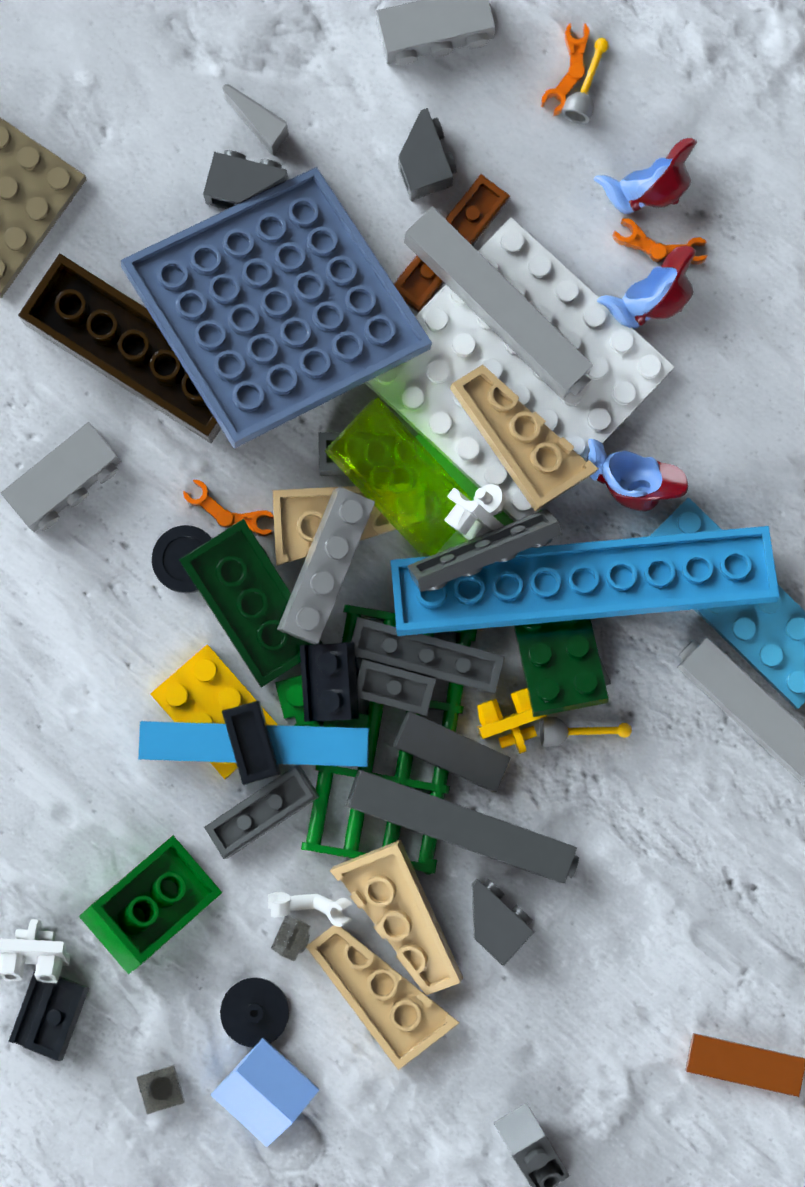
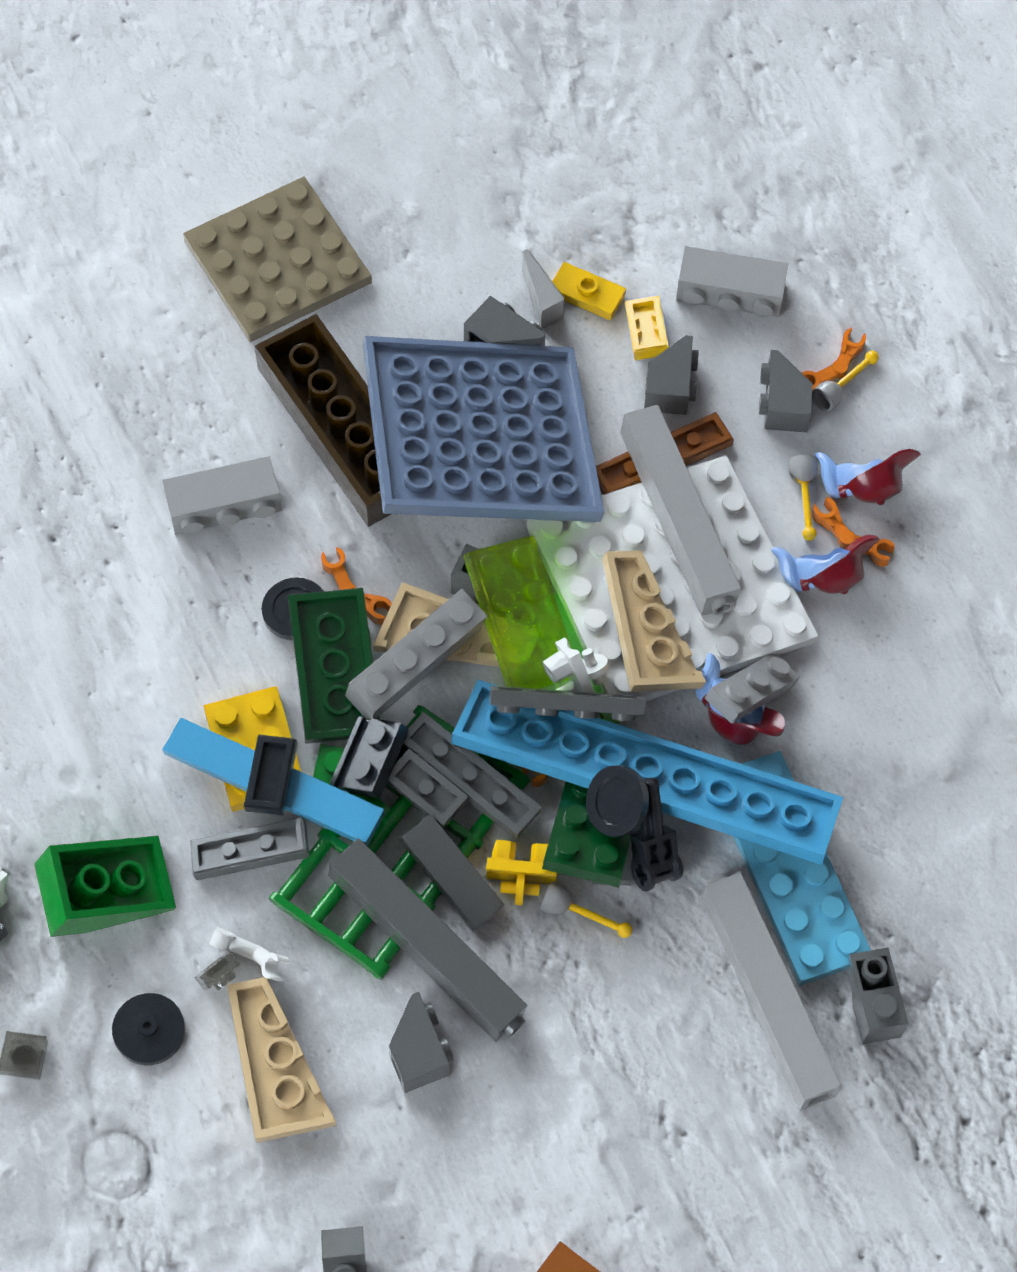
camera: 25 degrees right, 20 degrees down
(265, 1092) = (118, 1104): light blue slope -> none
(300, 95) = (589, 291): none -> yellow plate
(376, 112) = (646, 327): none -> yellow plate
(396, 903) = (331, 986): tan wing -> none
(541, 127) = (787, 395): none -> dark grey slope
(576, 631) = (617, 801): none -> black piece
(589, 202) = (803, 471): none -> hinge
(622, 646) = (655, 846): none -> black connector
(641, 452) = (752, 687): none -> light grey plate

